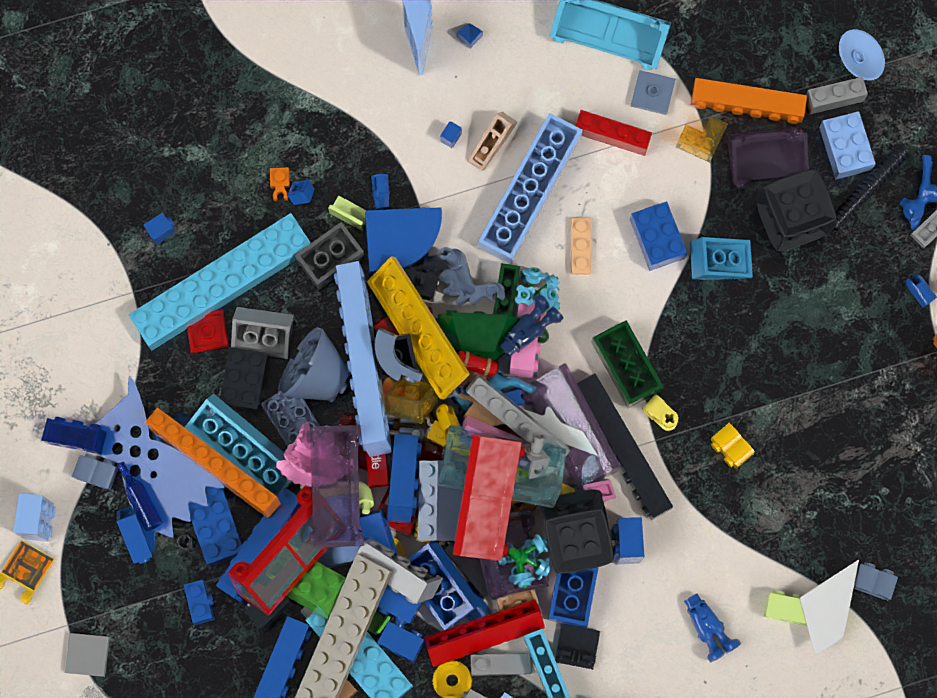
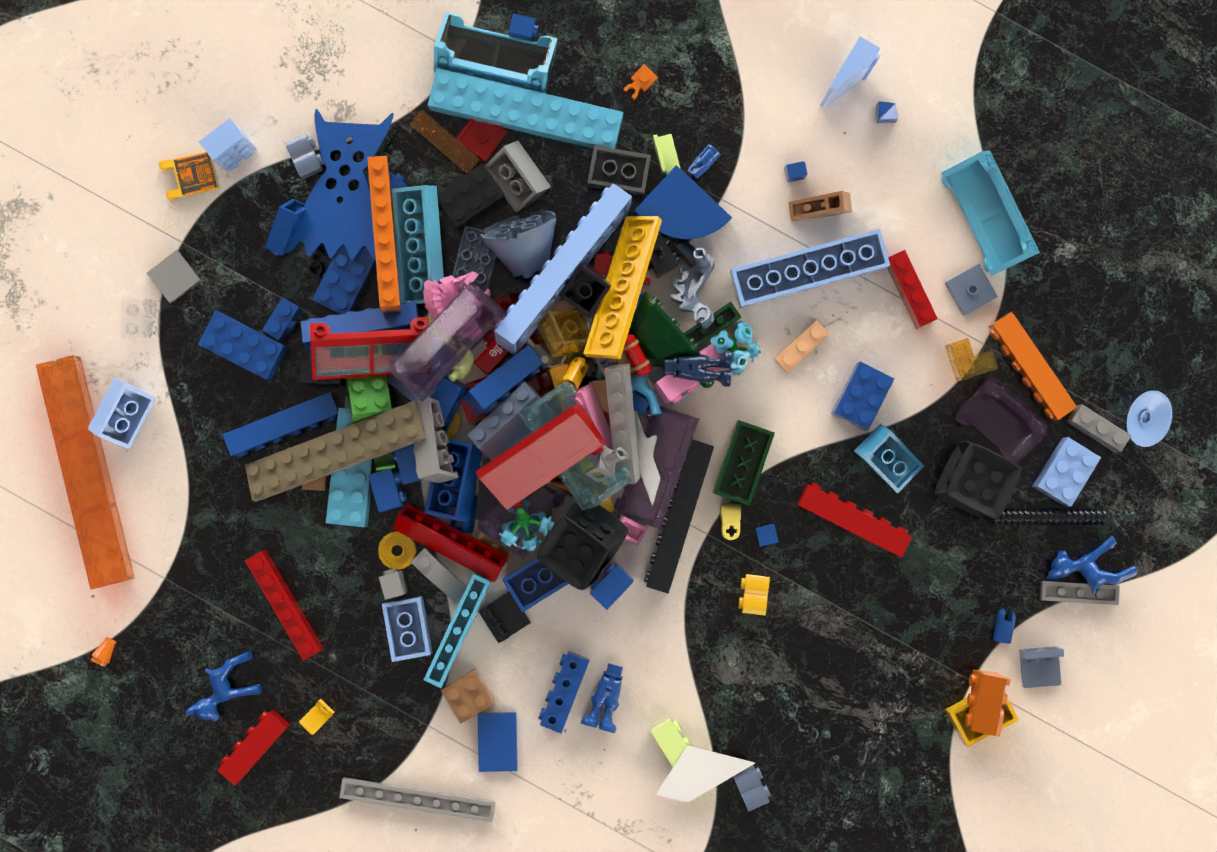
camera: 45 degrees right, 10 degrees up
(74, 435) = (315, 115): clear blue brick -> none
(140, 500) = (312, 208): clear blue piece -> none
(159, 266) = (494, 55): none -> windscreen
(186, 360) = (445, 142): none -> clear orange plate
(189, 650) = (243, 345): none -> blue brick
(301, 192) = (648, 104): blue slope -> none
(389, 361) = (576, 291): sand blue arch -> none
(675, 652) = (564, 691): none -> blue brick
(695, 397) = (766, 535): none -> blue tile
(743, 325) = (853, 520): none -> red brick

